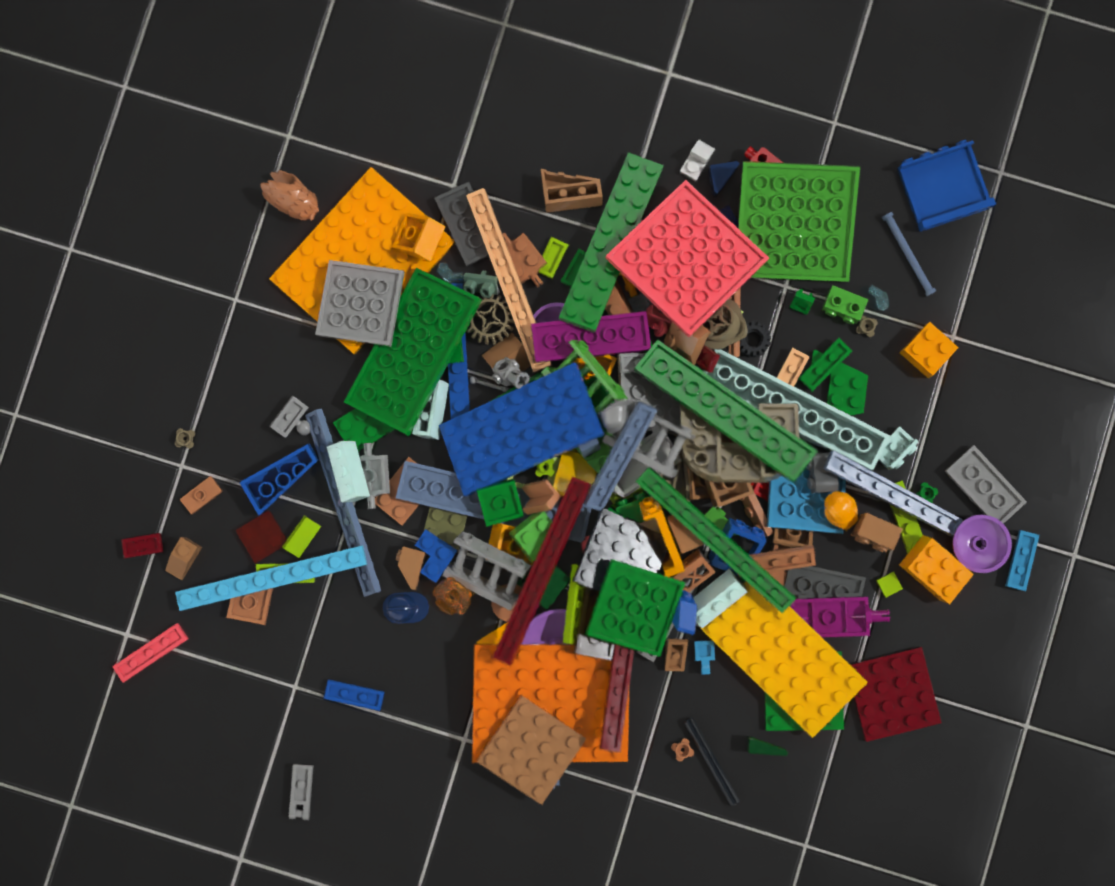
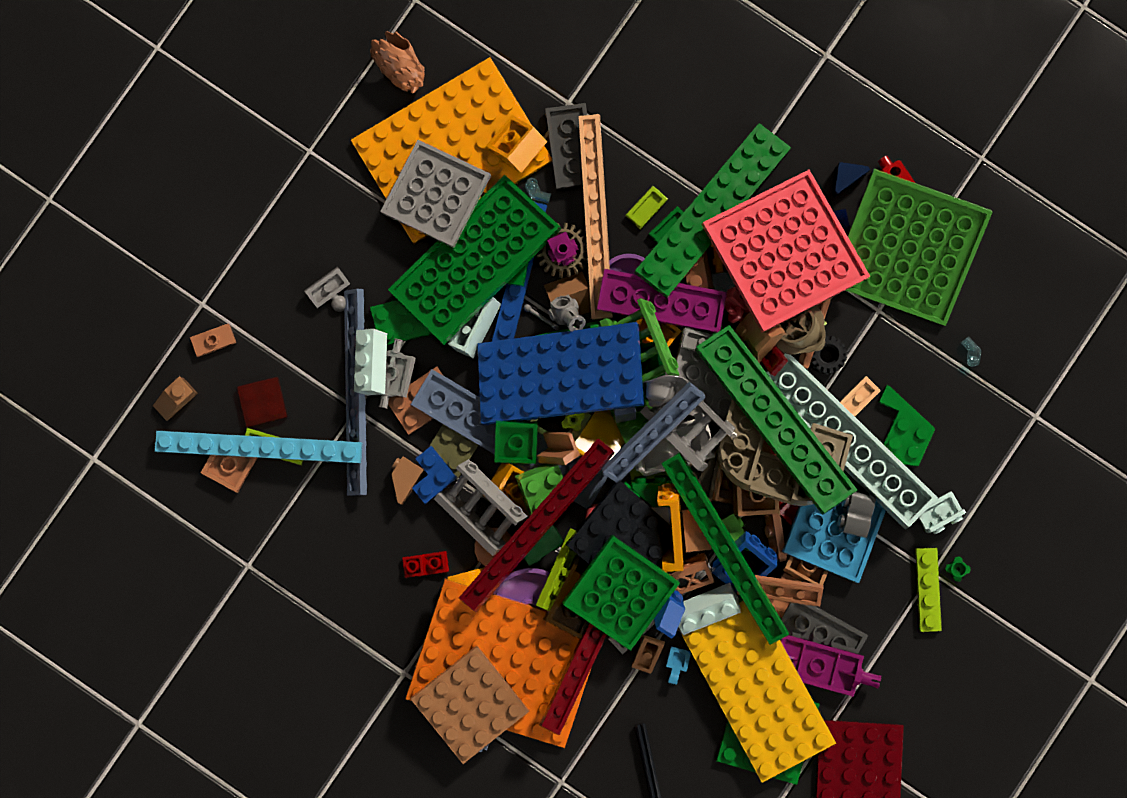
camera: 15 degrees right, 0 degrees up
(142, 545) = (137, 373): dark red plate -> none
(150, 652) = (112, 484): coral tile -> none
(181, 442) = (208, 278): dark tan plate -> none
(273, 481) = (291, 348): blue wedge -> none
(301, 536) = (302, 414): lime tile -> none
(301, 791) = (221, 673): light grey plate -> none
(354, 695) = (306, 592): blue tile -> none
(405, 607) = (386, 519): dark blue piece -> none
(453, 588) = (447, 524): clear orange plate -> none
(453, 636) = (425, 564): none -> red slope
(481, 283) = (567, 212): sand green hips -> none
(485, 312) = (562, 242): none -> magenta brick
(525, 258) = (619, 200): nougat plate -> none
(570, 192) = (685, 145): medium nougat wedge -> none
(677, 748) = (628, 748): nougat plate -> none
(697, 160) = (827, 153): white slope -> none
(757, 746) = (706, 776): dark green slope -> none
(802, 302) = (890, 332): green tile -> none
(825, 364) = (894, 404): green tile -> none
(841, 510) = (864, 558): light orange hair -> none
(844, 305) = (933, 348): bright green brick -> none
(872, 323) = (948, 371): dark tan plate -> none
(876, 532) = (893, 592): medium nougat brick -> none
(889, 584) = (890, 650): lime tile -> none
(892, 493) = (922, 558): plate -> none
(909, 254) = (1016, 316): sand blue bar -> none
(929, 350) = (1006, 421): light orange brick -> none
(936, 569) = (943, 650): light orange brick -> none
(945, 185) = (1075, 257): blue panel -> none
(985, 485) = (1021, 580): light grey plate -> none
(994, 539) = (1012, 641): medium lavender dish -> none
(1022, 560) = (1035, 668): dark azure plate -> none

